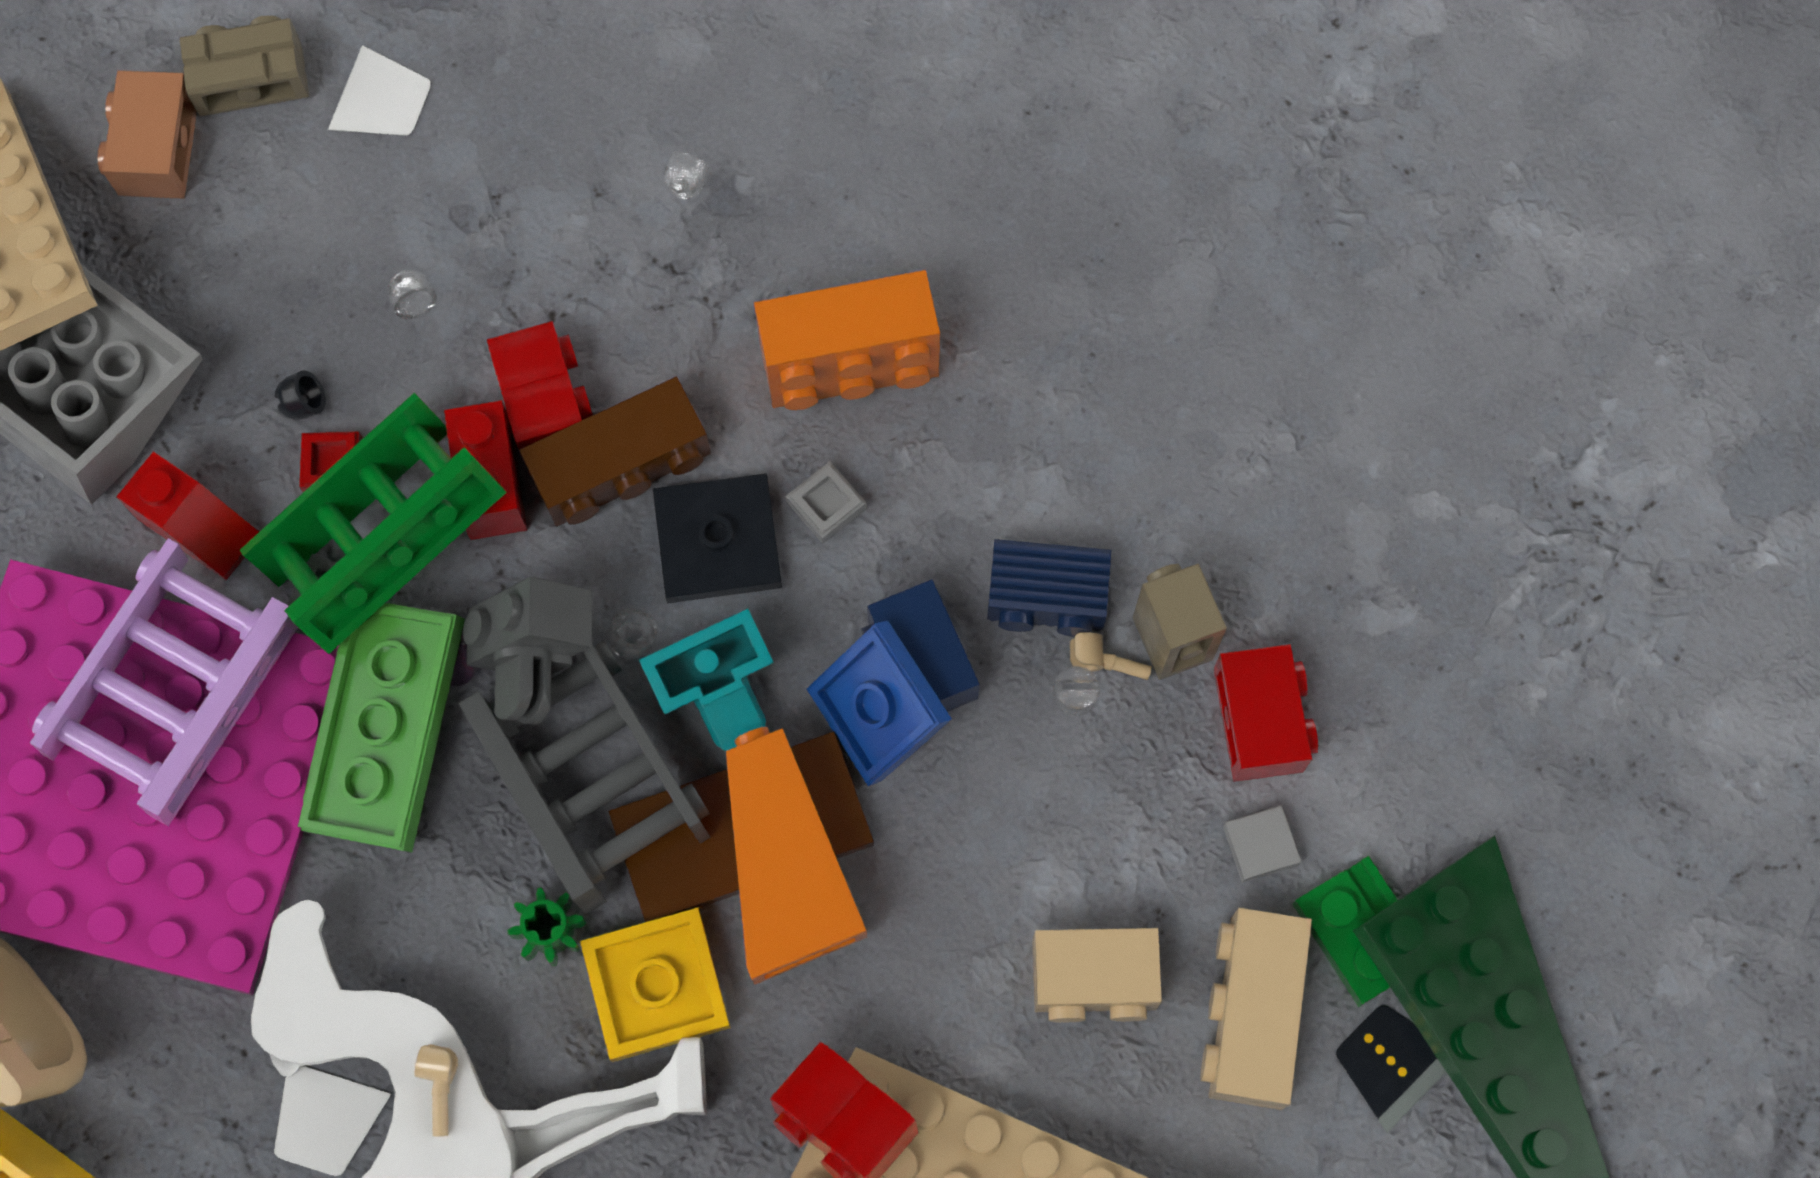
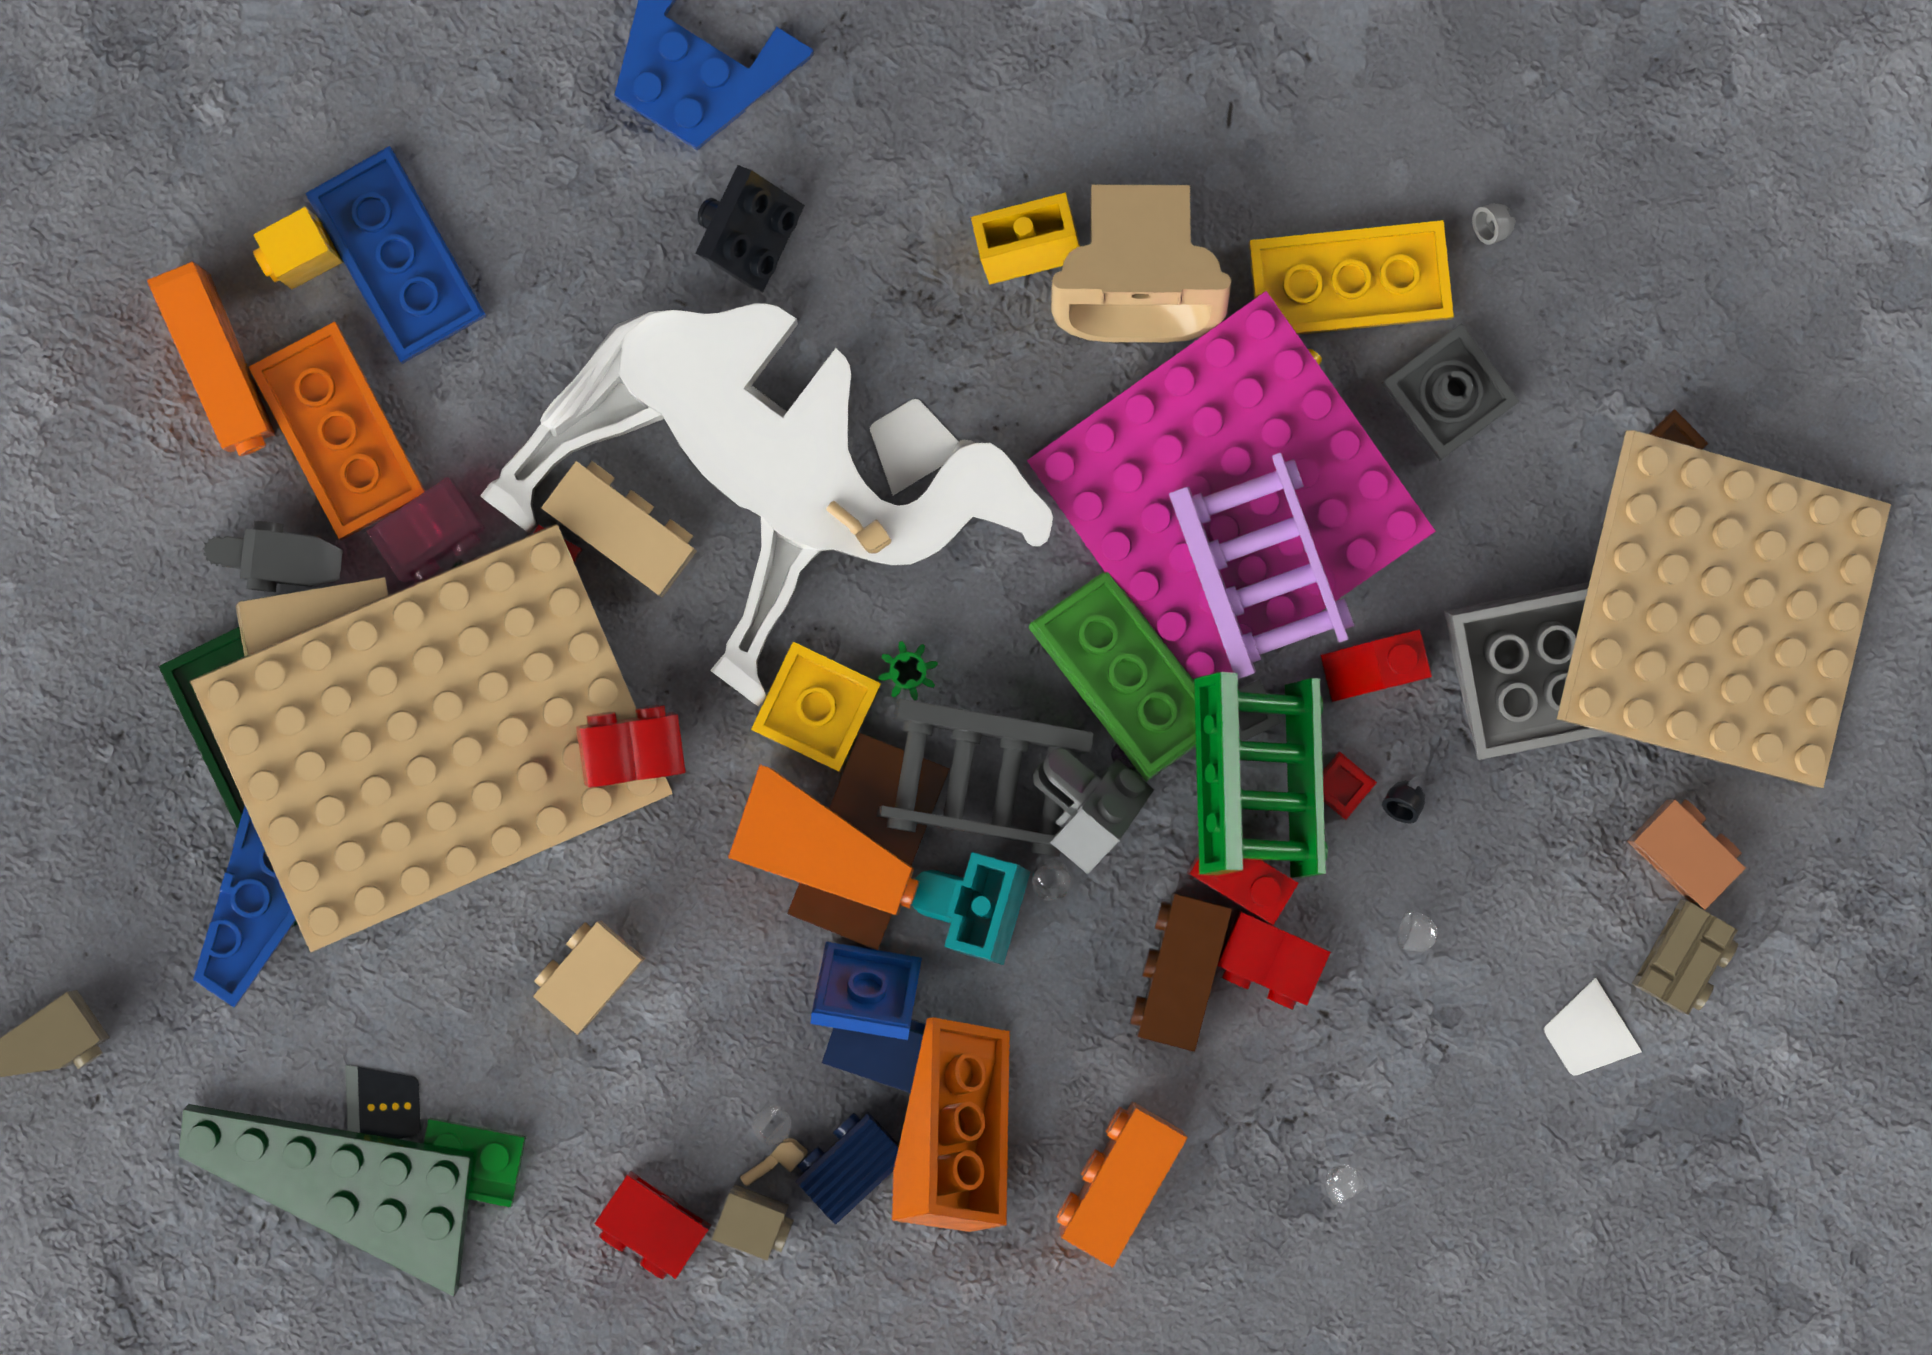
camera: 135 degrees right, 15 degrees up
(717, 538) = (1071, 988): black plate -> none
(826, 502) = (1034, 1078): light grey tile -> none
(932, 517) = (955, 1130): none -> orange slope
(1257, 1008) = (481, 1052): tan brick -> none
(1261, 844) = (576, 1150): light grey tile -> none

